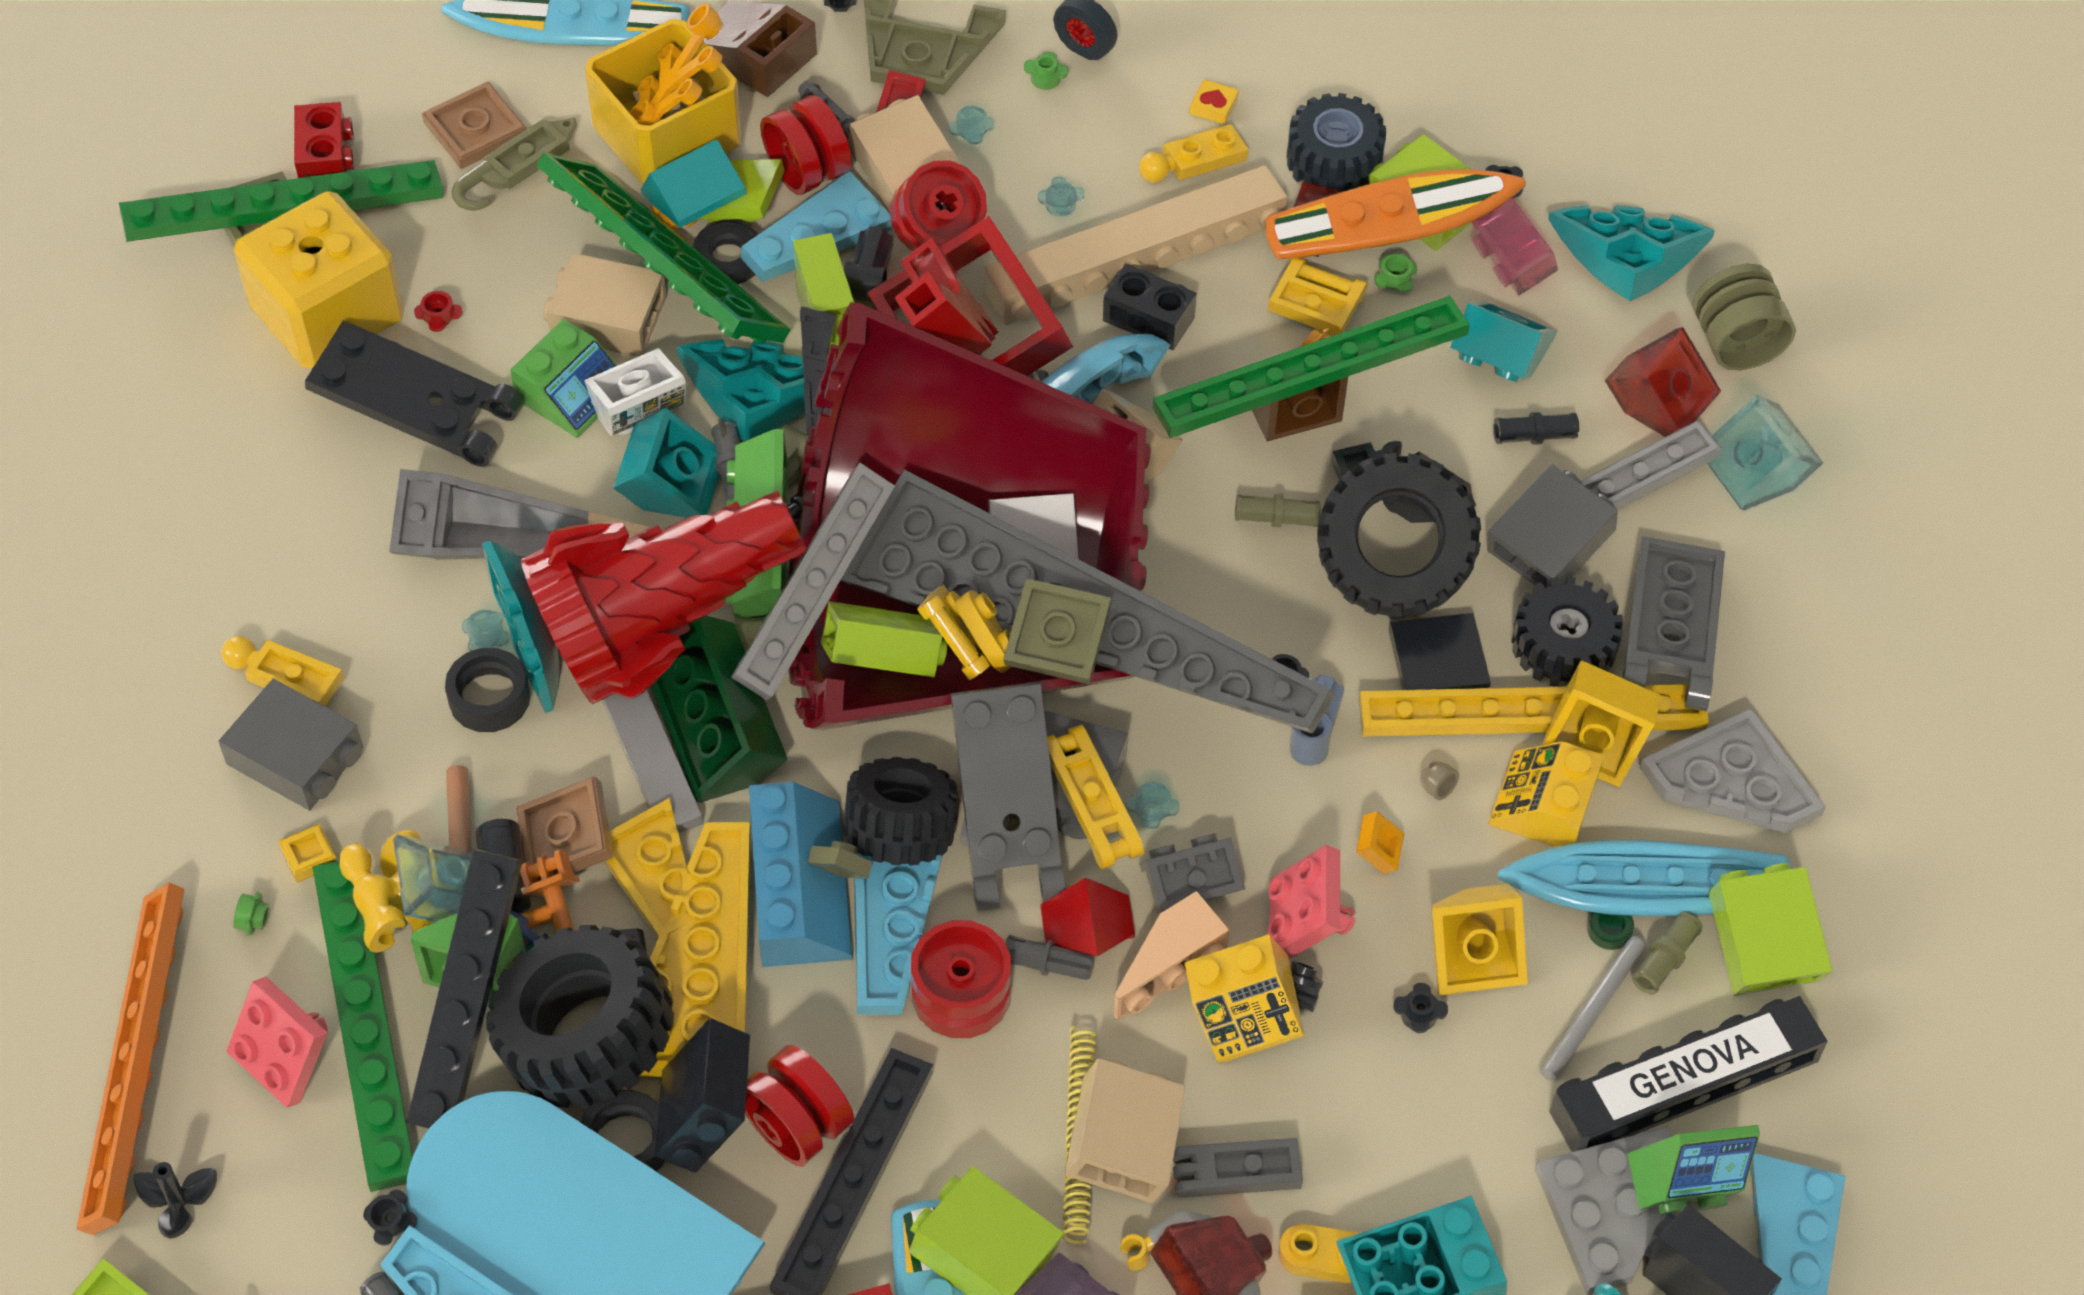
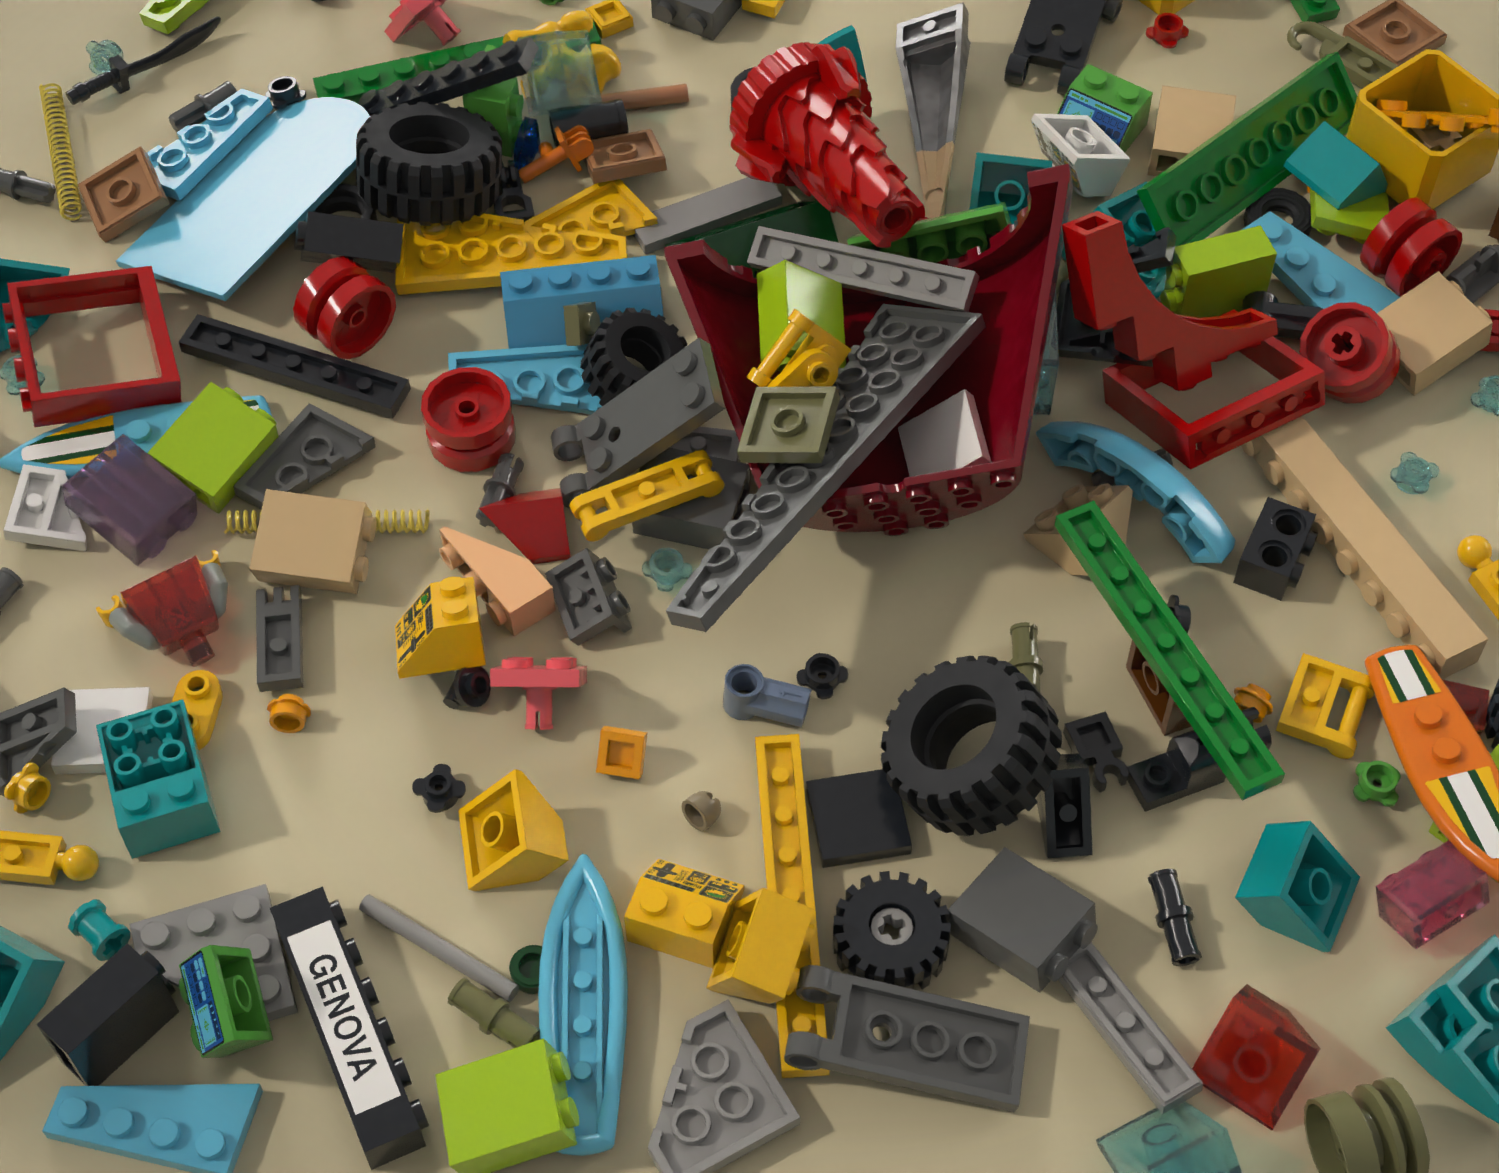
camera: 90 degrees right, 0 degrees up
(983, 1139) = (303, 455): none -> dark grey wing
(1332, 1153) = (288, 713): none -> light orange plate
(1383, 402) = (1182, 769): none -> black plate

